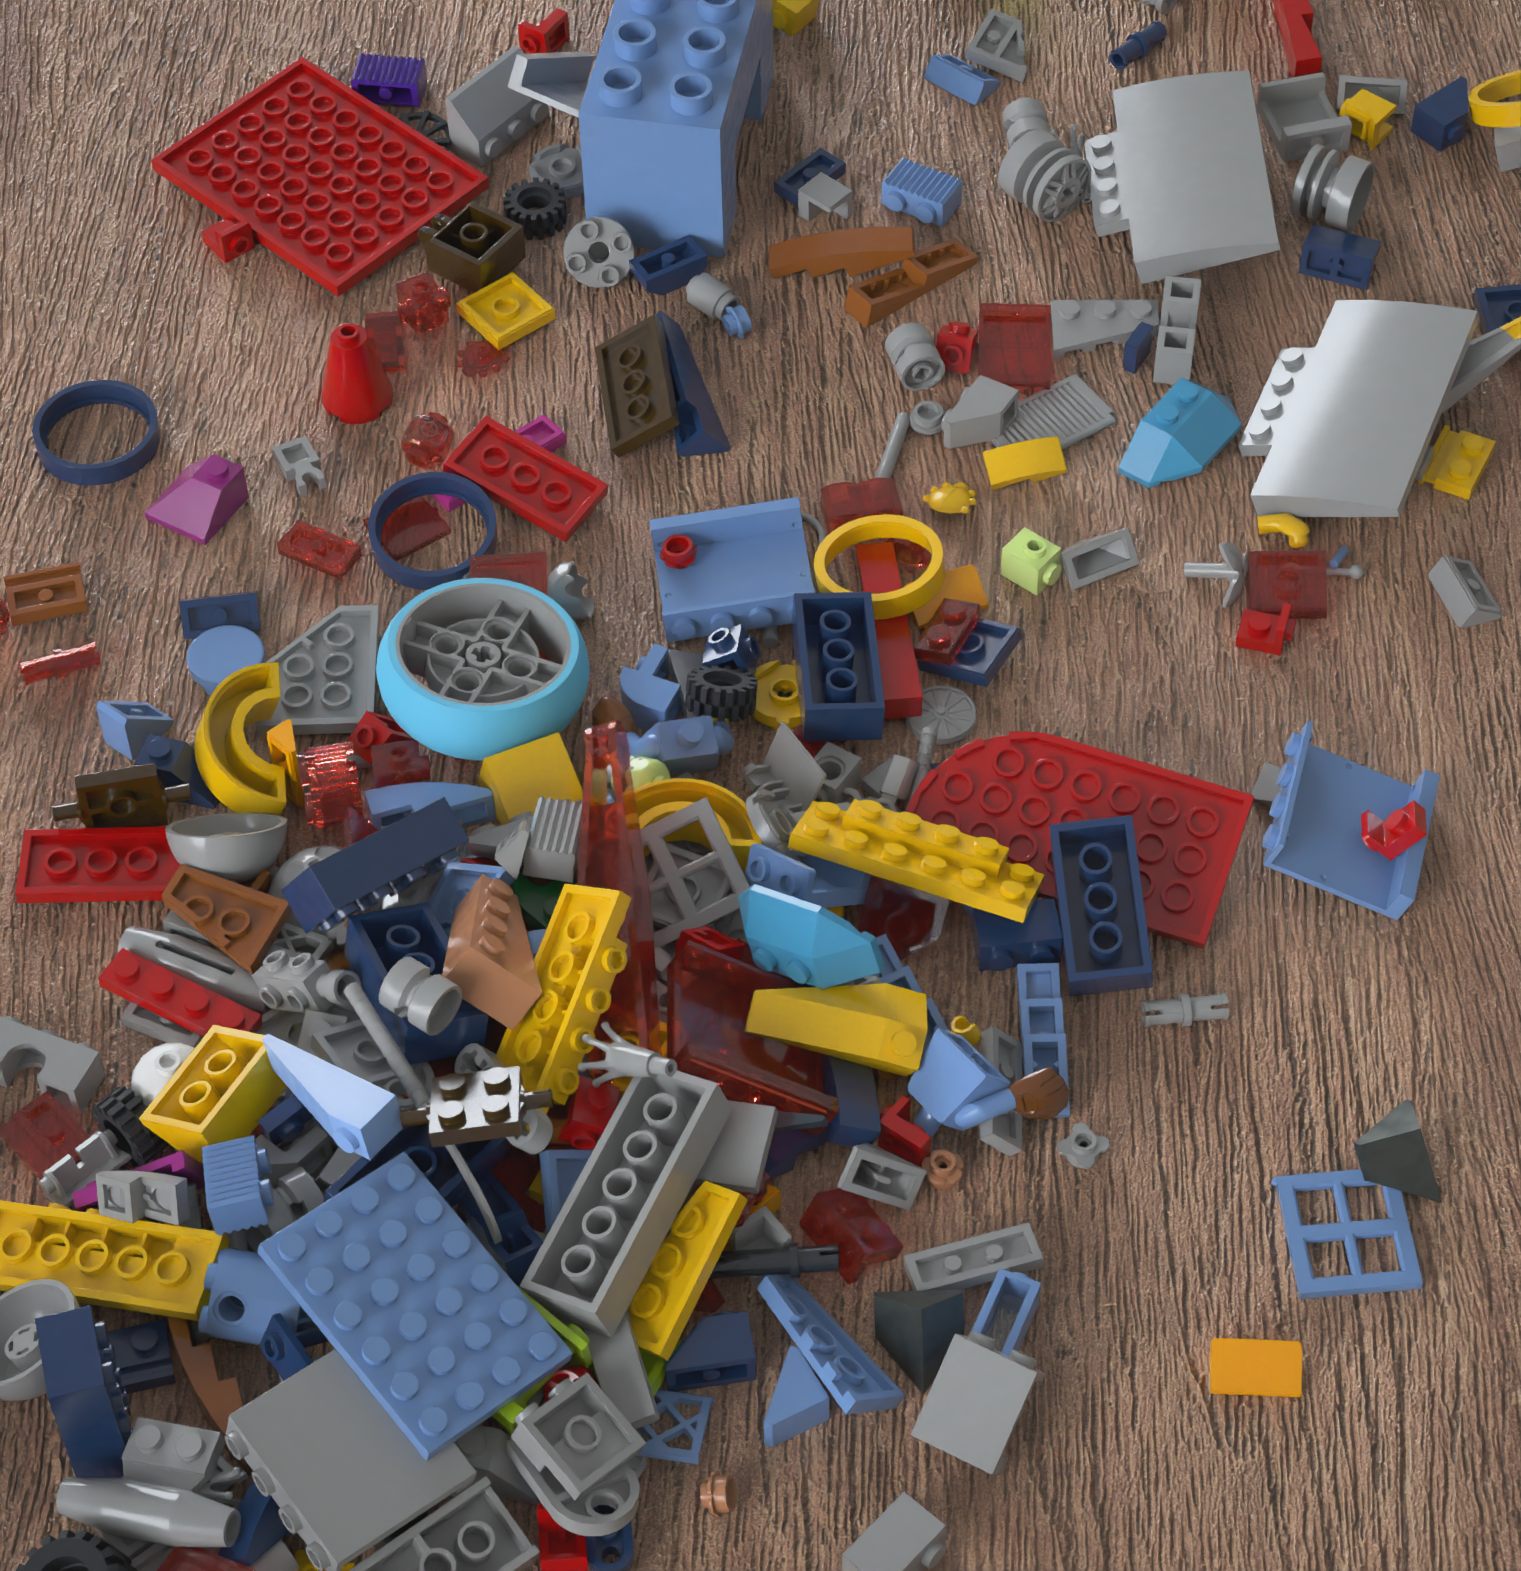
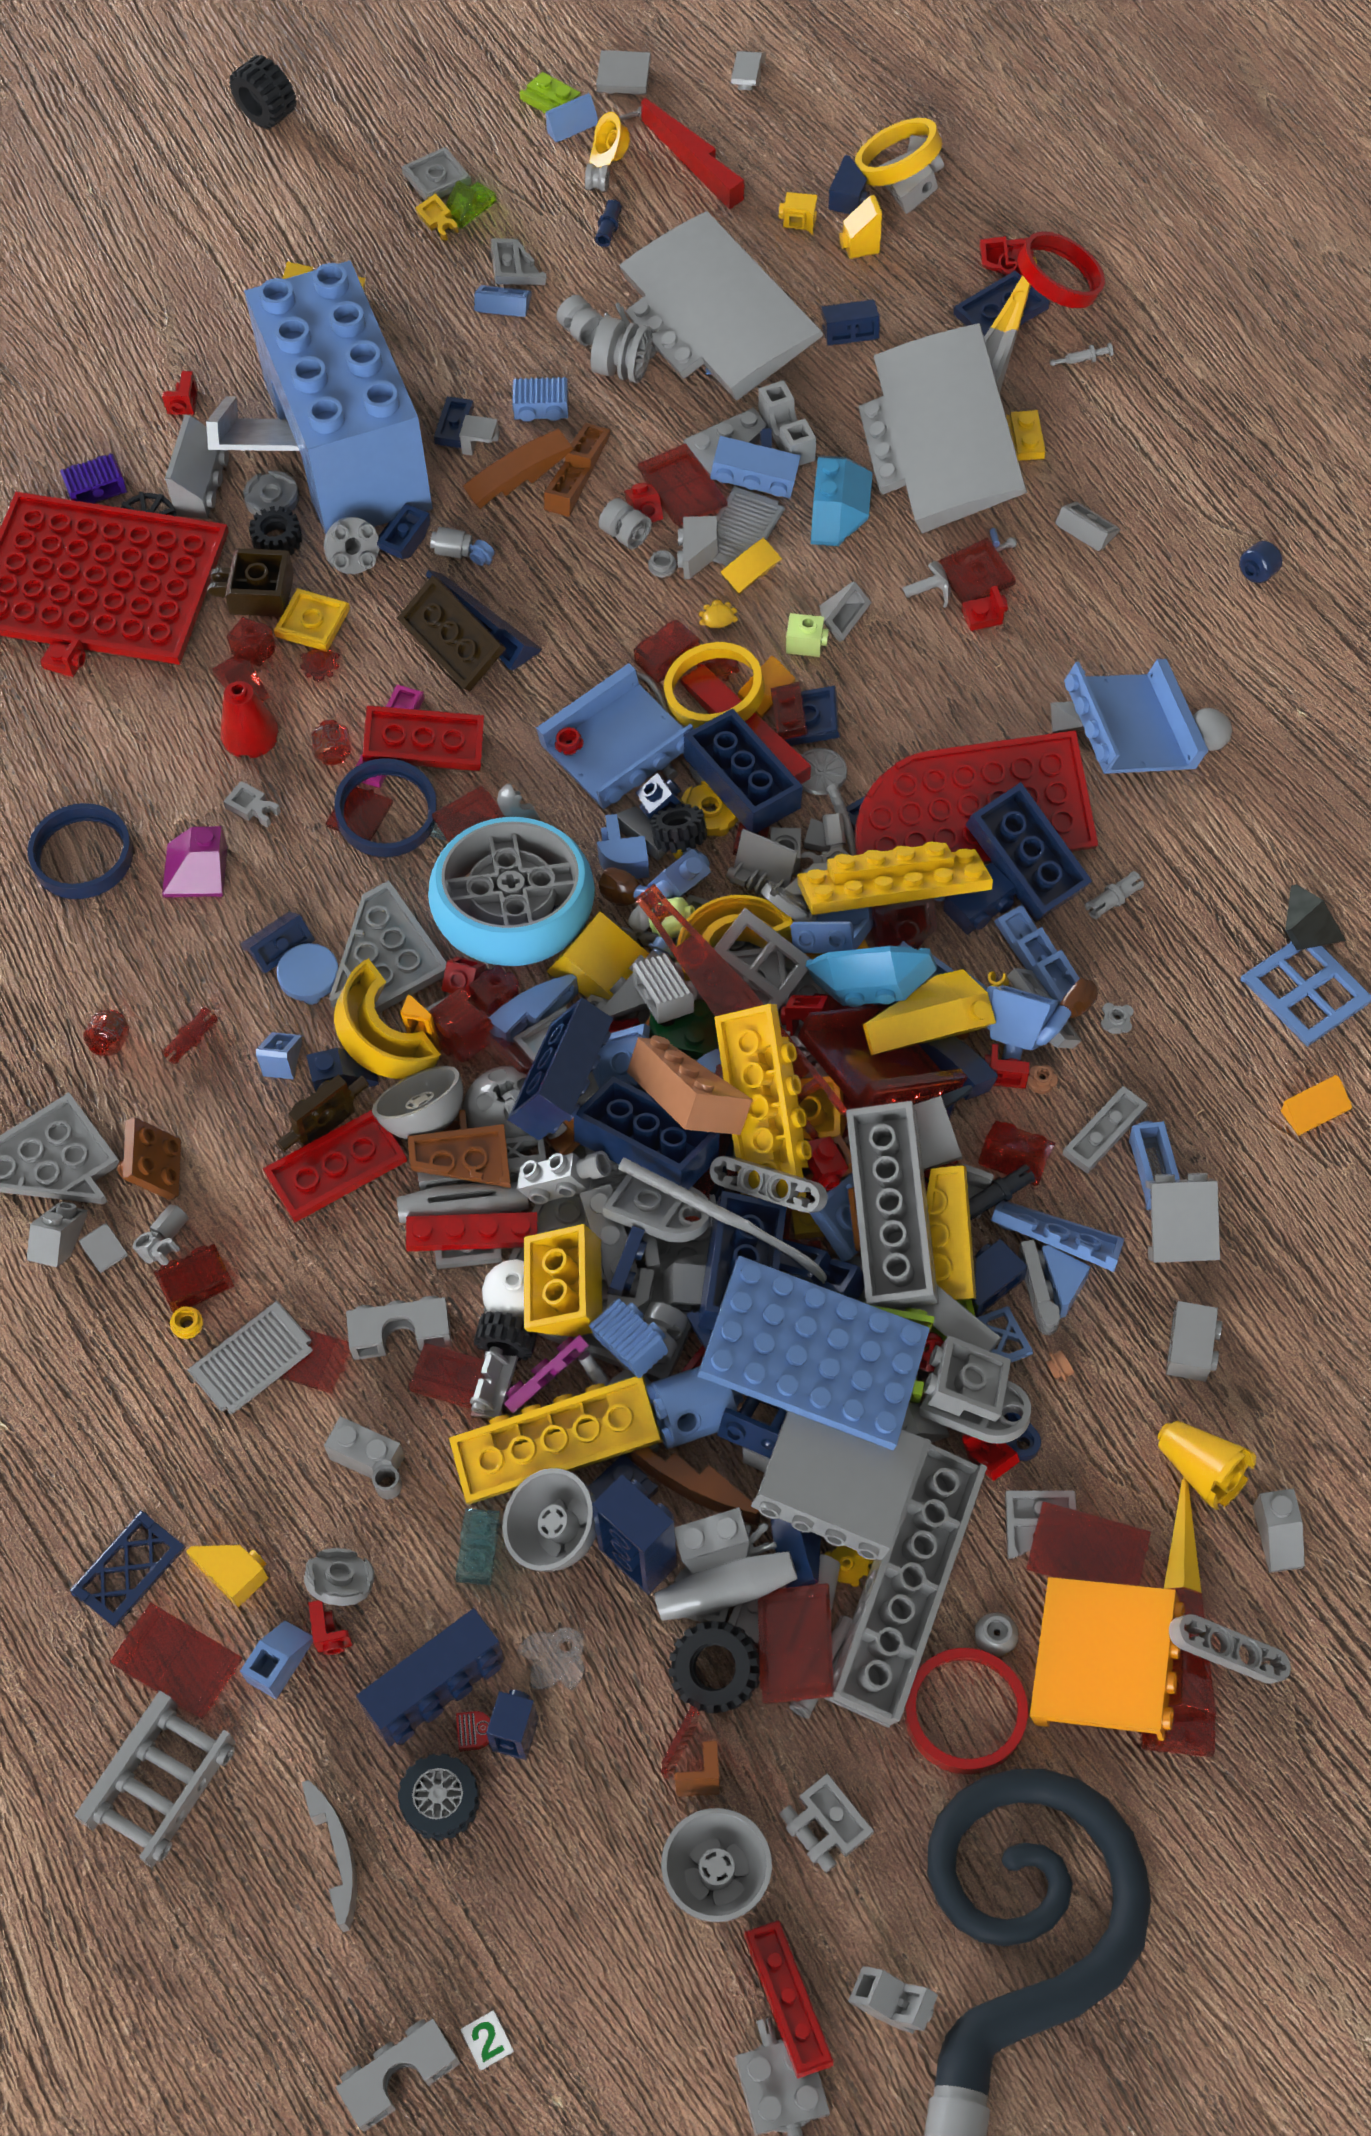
camera: 30 degrees left, 10 degrees up
(45, 593) = (139, 989): dark orange plate -> none
(142, 1194) = (560, 1380): light grey slope -> none
(319, 549) = (313, 860): clear red plate -> none
(347, 1107) = (677, 1246): light blue slope -> none
(423, 998) = (680, 1144): light grey wheel -> none
(476, 1106) = (770, 1200): dark brown plate -> none
(512, 848) = (642, 1006): light grey slope -> none
(626, 1059) = (841, 1115): light grey piece -> none
(757, 1394) = (1038, 1289): none -> light grey hinge
(881, 1176) = (1013, 1104): light grey slope -> none
(893, 446) = (653, 597): light grey bar -> none
(918, 1329) = (1103, 1192): pearl dark grey slope -> none
(1106, 360) = (755, 467): none -> medium blue brick
(1288, 525) = (949, 530): yellow arm -> none
(1301, 116) = (758, 230): light grey panel -> none
(1327, 186) = (818, 274): light grey wheel -> none
(1389, 89) = (777, 192): light grey slope -> none
(1397, 832) = (1167, 710): red bracket -> none
(1423, 164) = (862, 230): none -> yellow slope
(1444, 882) = (1214, 728): none -> light grey hair

